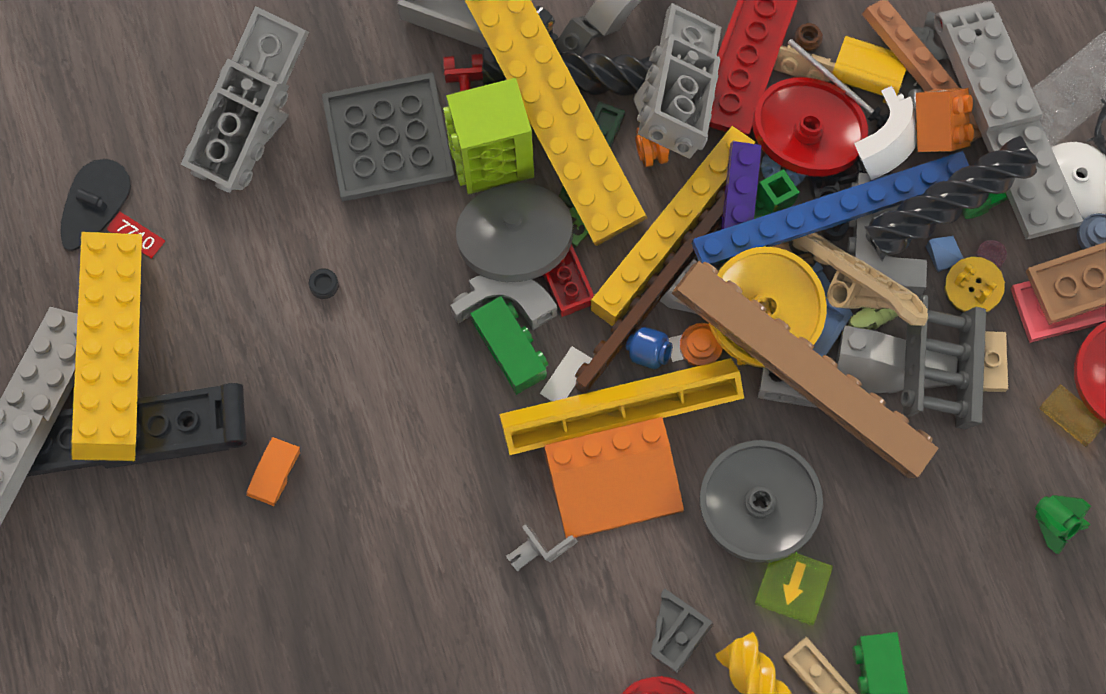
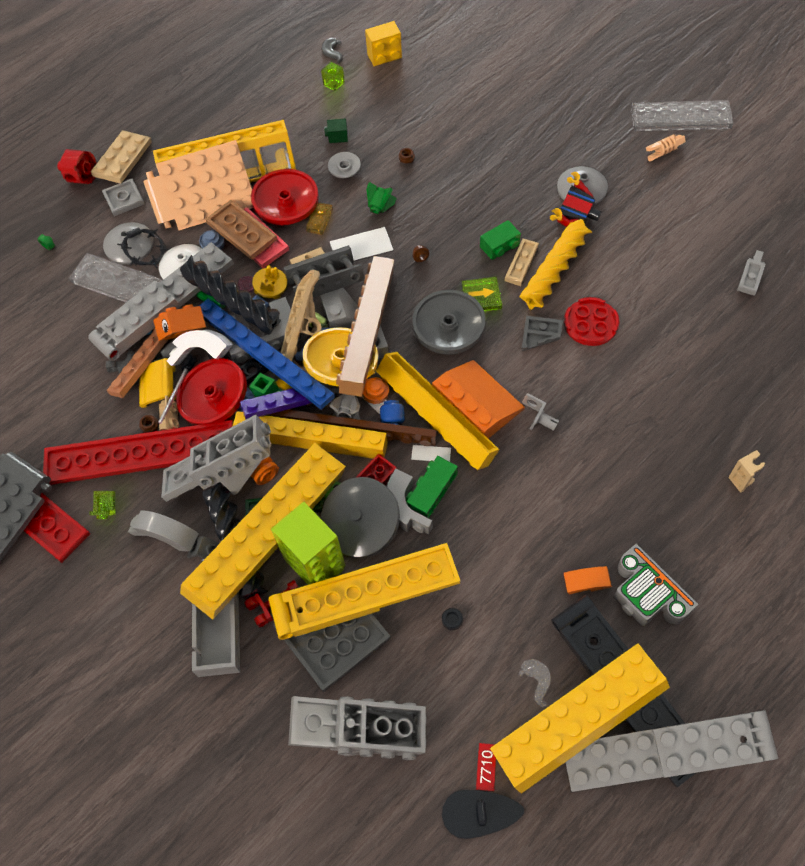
camera: 115 degrees left, 10 degrees down
(197, 351) = (541, 673): none -> clear piece
(212, 538) = (650, 590): none -> brick
(405, 188) = (362, 591): none -> yellow hinge
(917, 530) = (420, 253): none -> reddish brown plate
(988, 459) = (365, 243): none -> white sticker

